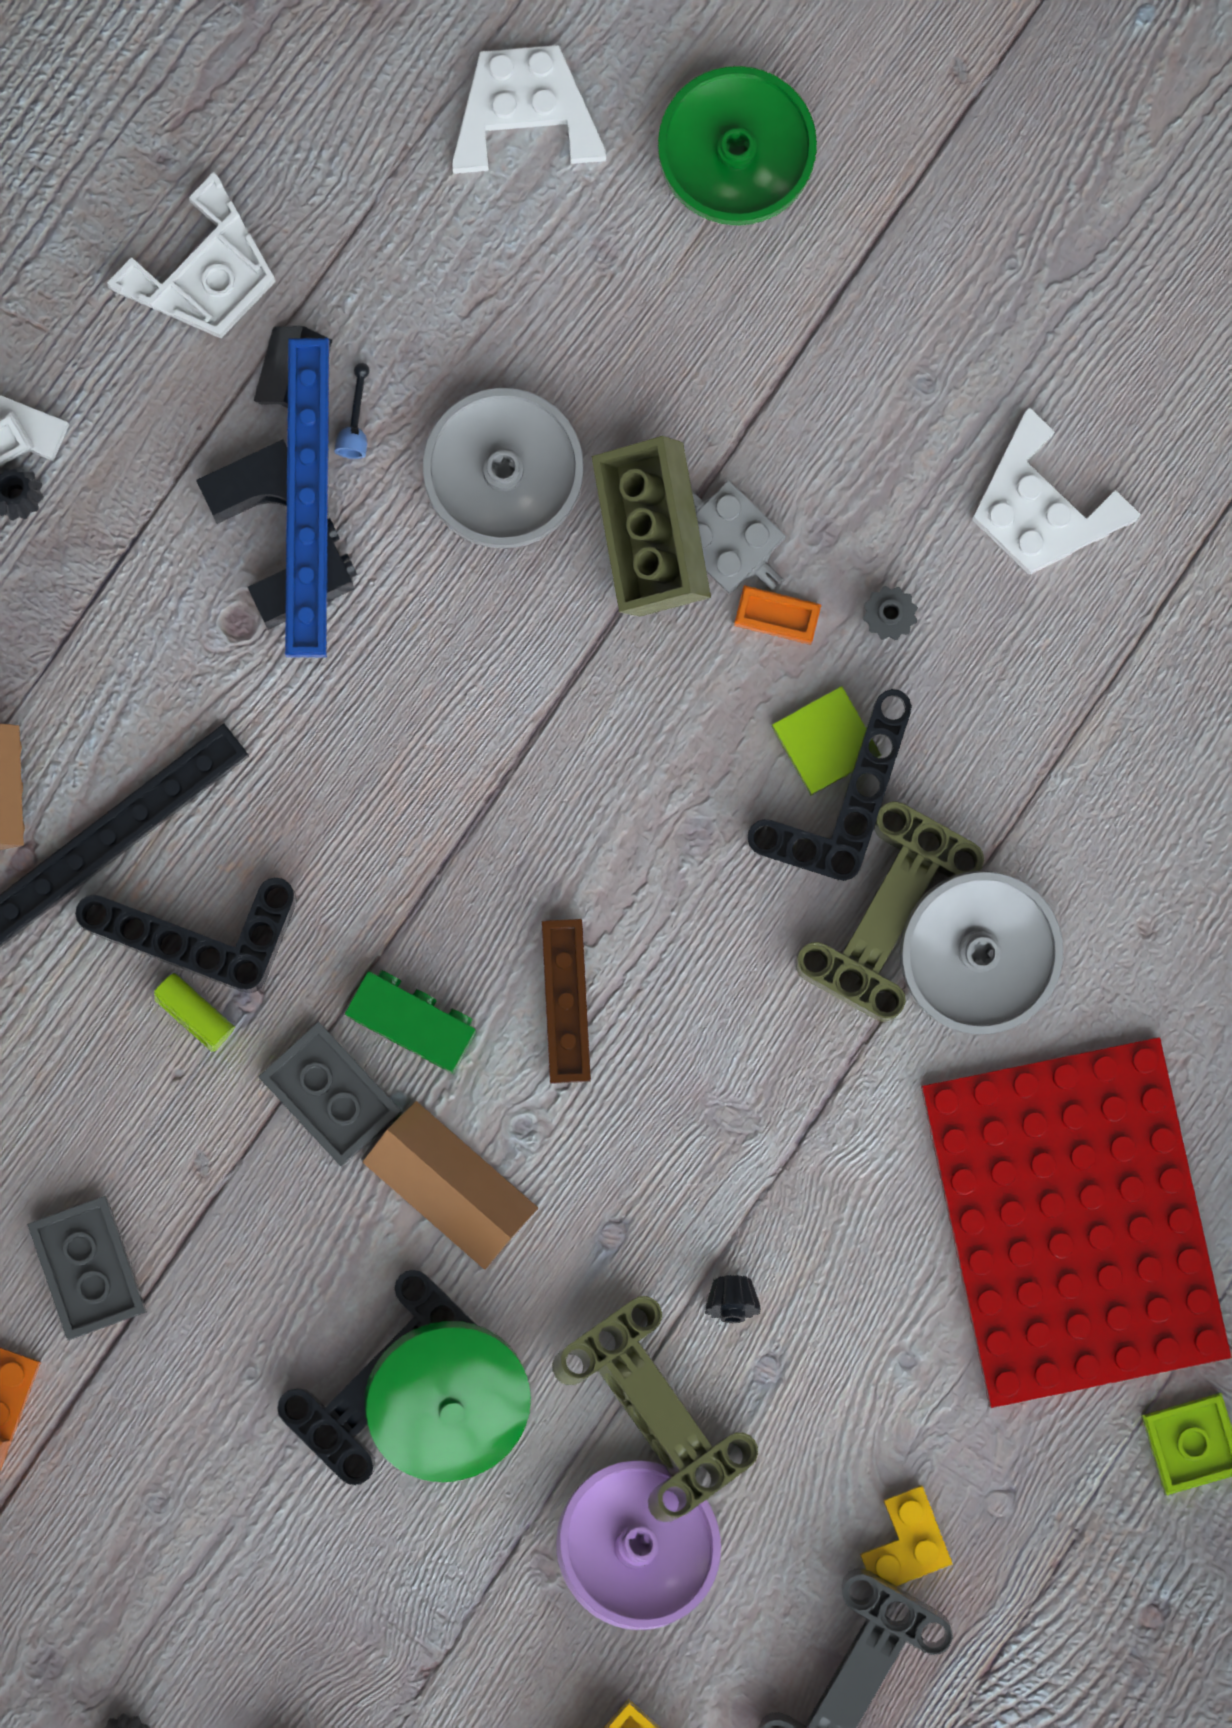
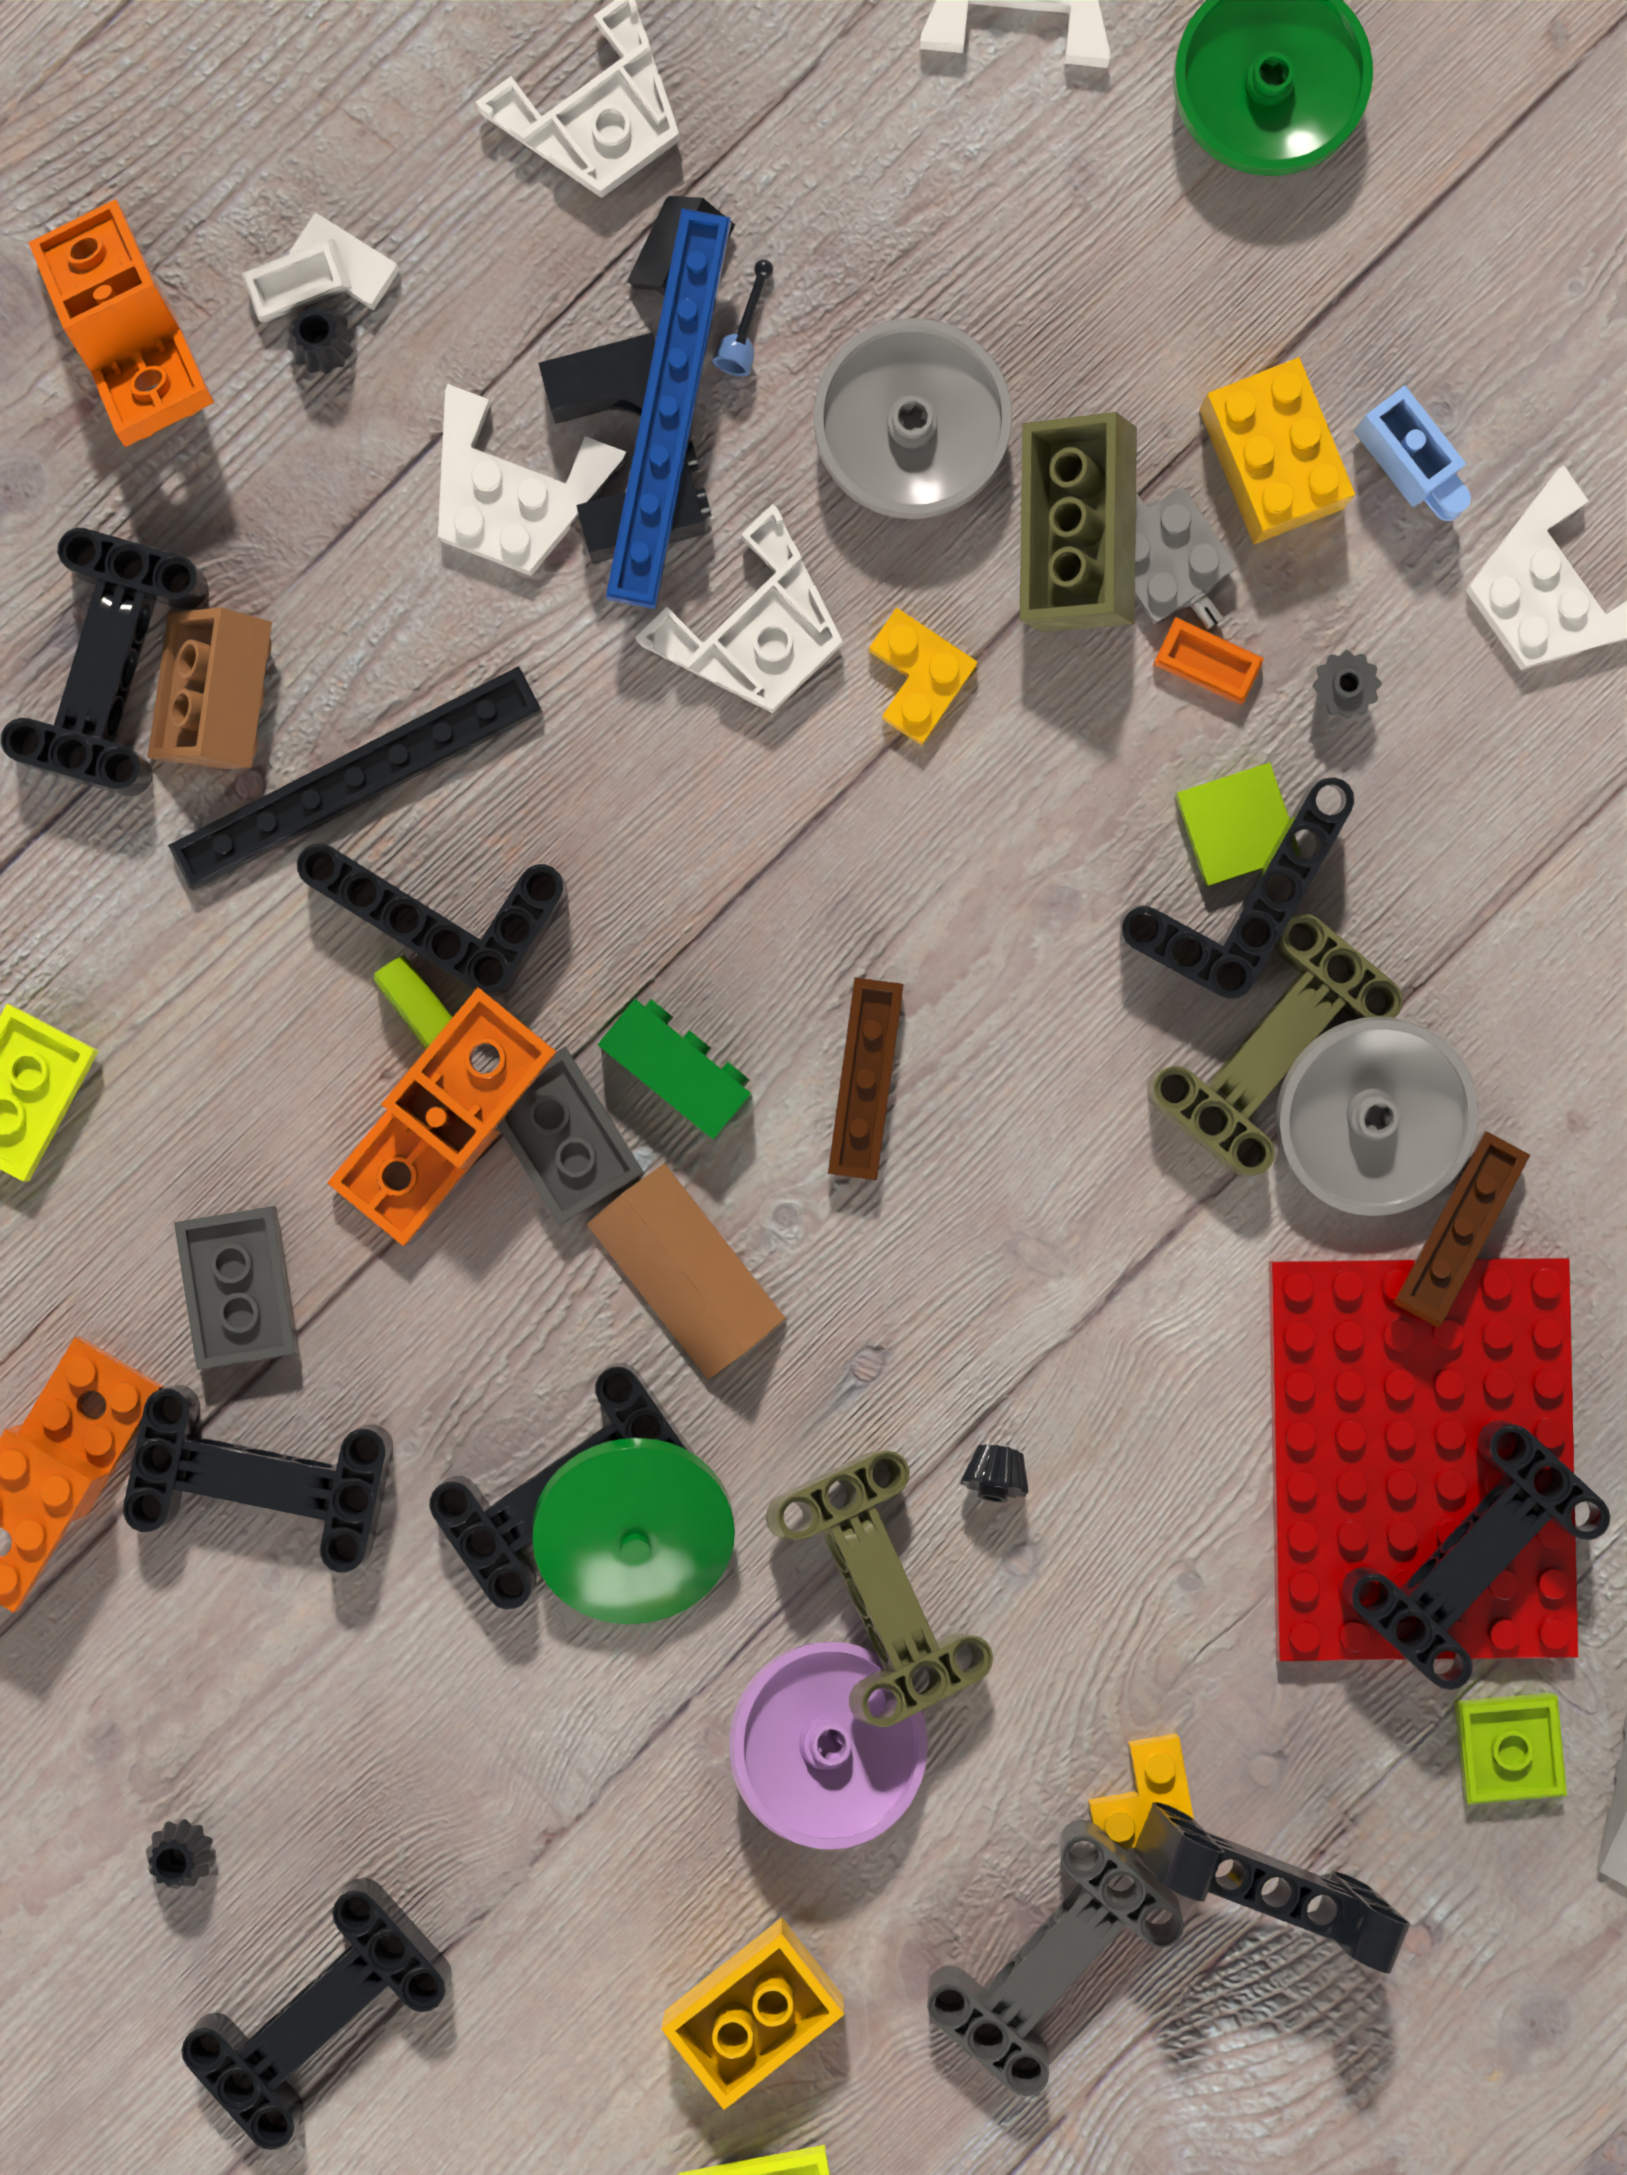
camera: 15 degrees right, 5 degrees up
(132, 1419) = (256, 1477): none -> black beam
(186, 598) = (503, 507): none -> white wing
(230, 1096) = (441, 1116): none -> orange bracket
(422, 664) = (770, 639): none -> white wing
(558, 664) = (932, 670): none -> yellow plate
(798, 439) = (1276, 450): none -> yellow brick
(908, 422) = (1415, 455): none -> light blue brick
(1067, 1029) = (1461, 1229): none -> reddish brown plate
(1082, 1596) = (1348, 1912): none -> black beam
(1129, 1286) = (1476, 1552): none -> black beam

